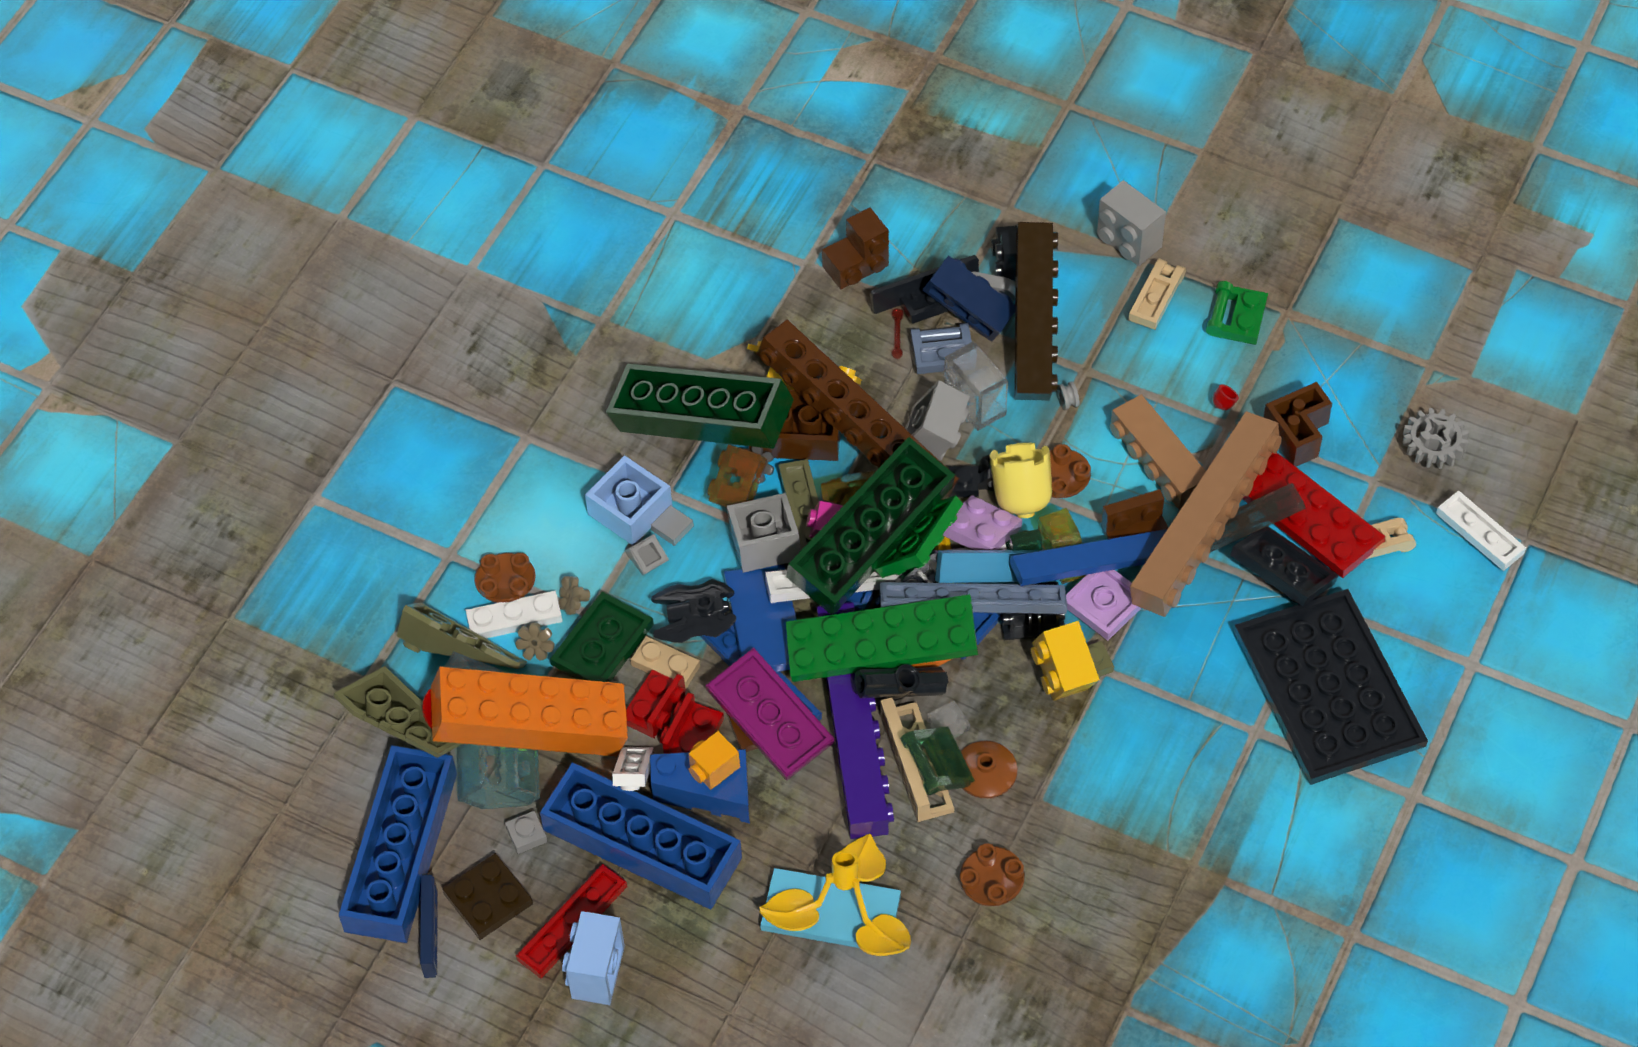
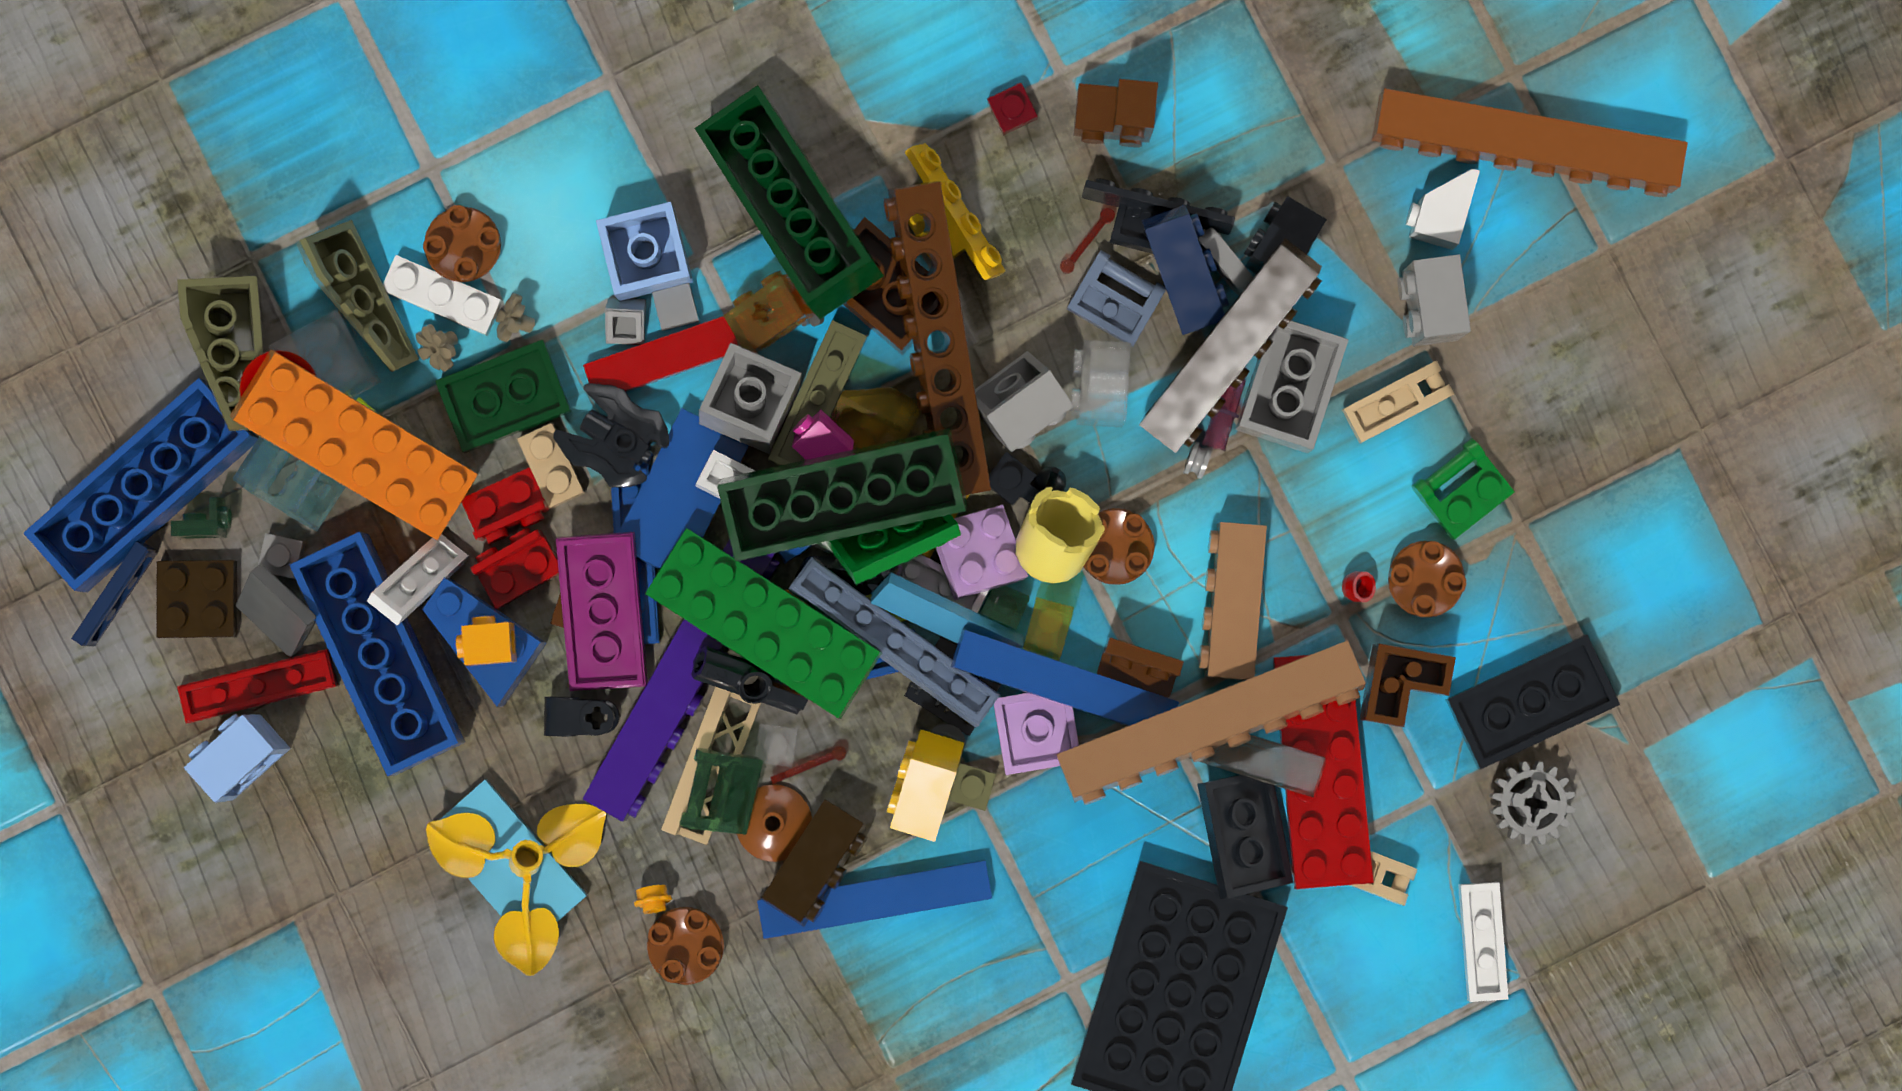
camera: 35 degrees right, 30 degrees up
(459, 846) = (198, 527): none -> clear green bracket
(550, 854) = (275, 610): none -> dark grey tile
(688, 554) = (663, 356): none -> red tile
(791, 296) = (1012, 108): none -> dark red plate
(805, 786) = (573, 716): none -> black piece
(946, 860) = (652, 898): none -> light orange plate
(991, 700) = (838, 753): none -> clear red hinge
(1035, 762) = (815, 864): none -> dark brown brick
(1063, 366) = (1222, 422): none -> clear pink axle
(1089, 766) = (887, 898): none -> blue tile
(1090, 319) = (1292, 386): none -> light grey brick
(1091, 184) = (1443, 212): none -> white slope
(1107, 124) = (1529, 142): none -> dark orange brick
(1260, 369) = (1426, 578): none -> dark orange dish
(1383, 389) = (1532, 702): none -> black plate

